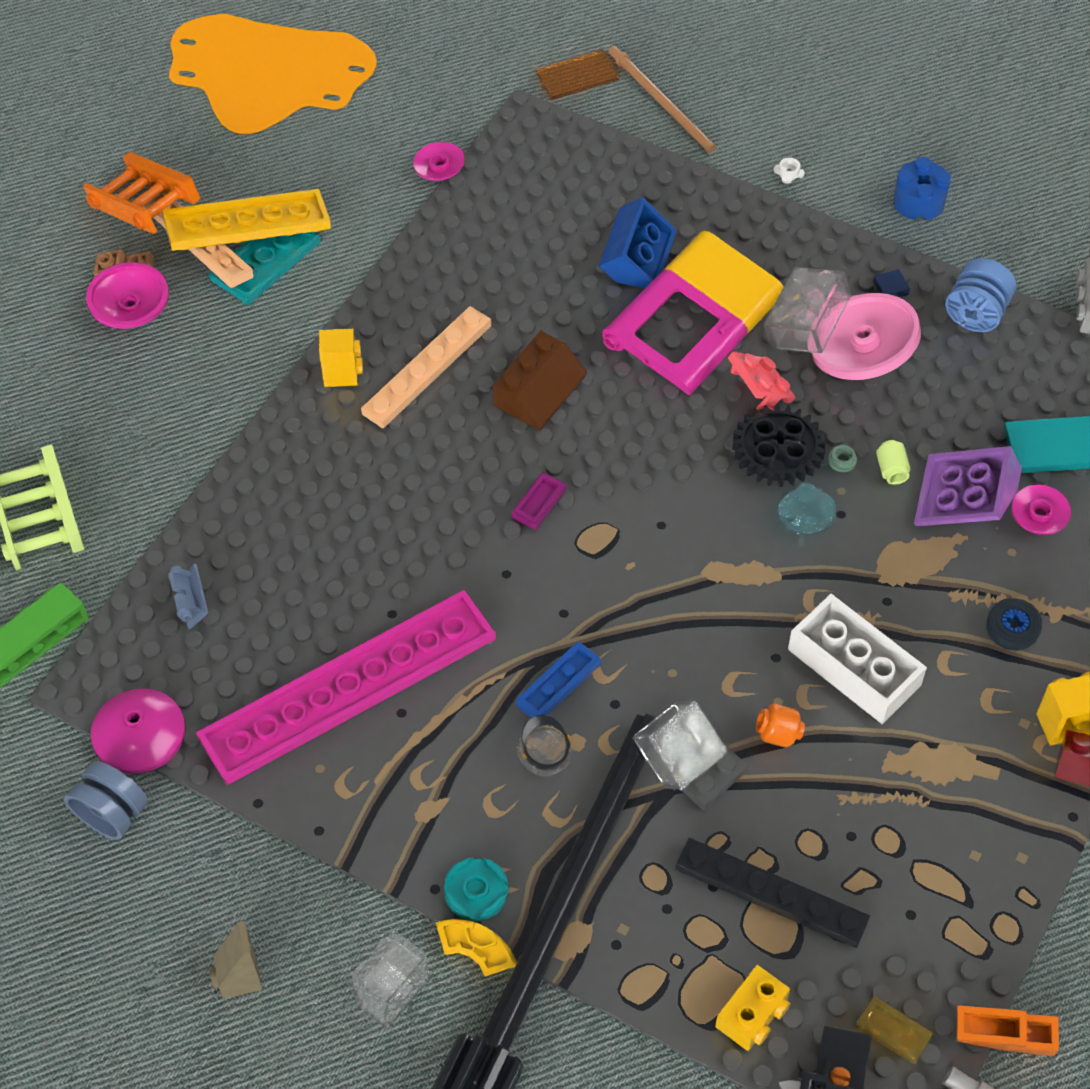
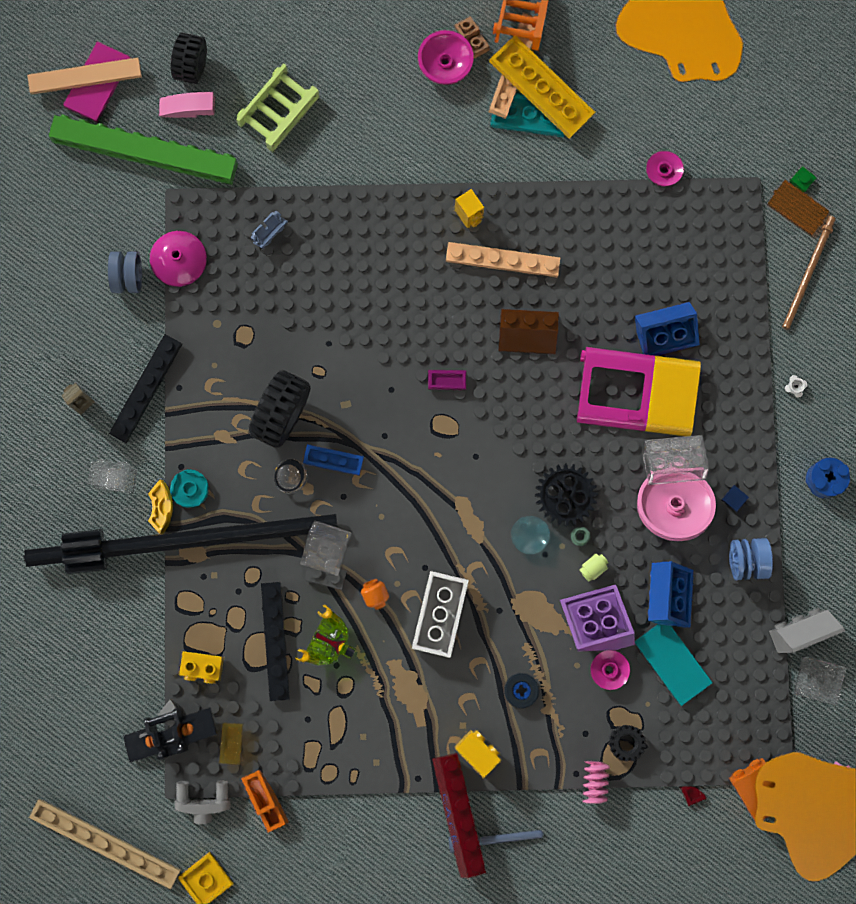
camera: 55 degrees right, 25 degrees up
(290, 874) = (145, 388): none -> black plate
(345, 687) = (264, 348): dark pink plate -> none
(450, 688) = (279, 409): none -> black tyre
(547, 53) = (802, 179): none -> green plate
(761, 379) = (606, 459): coral piece -> none
(812, 815) = (328, 641): none -> clear neon green torso
(976, 399) = (670, 594): none -> blue slope

